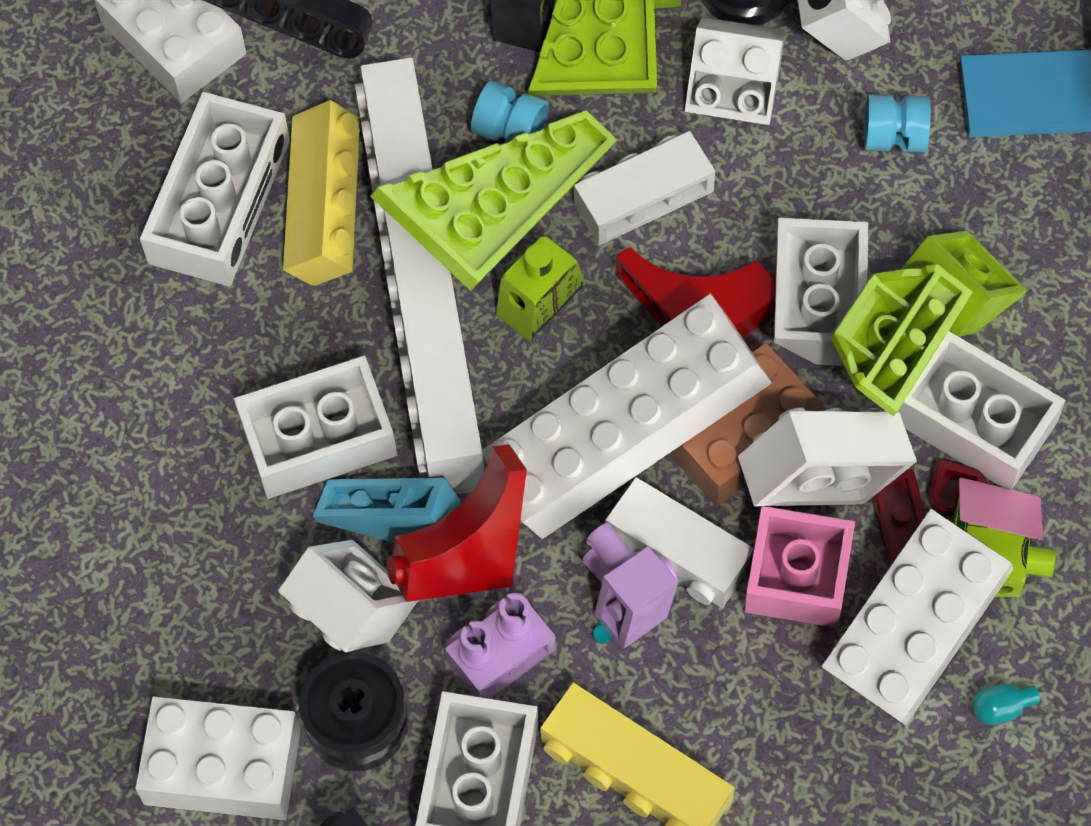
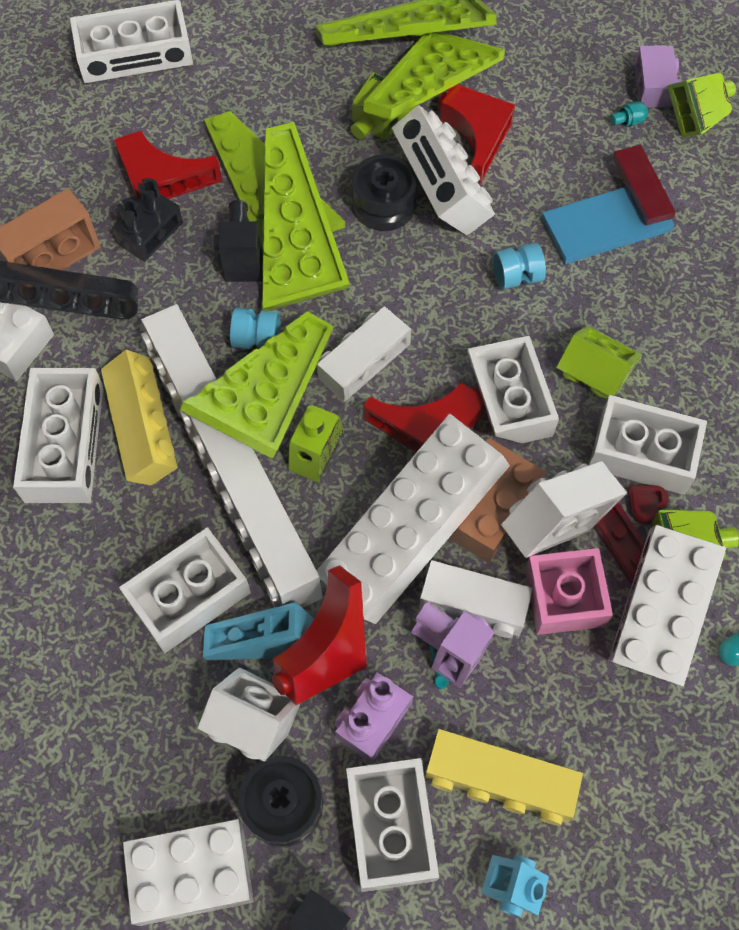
camera: 20 degrees left, 0 degrees up
(734, 70) = (398, 259): white slope -> none
(897, 330) = (581, 405): lime wedge -> none
(1000, 508) = (690, 509): bright pink sticker -> none

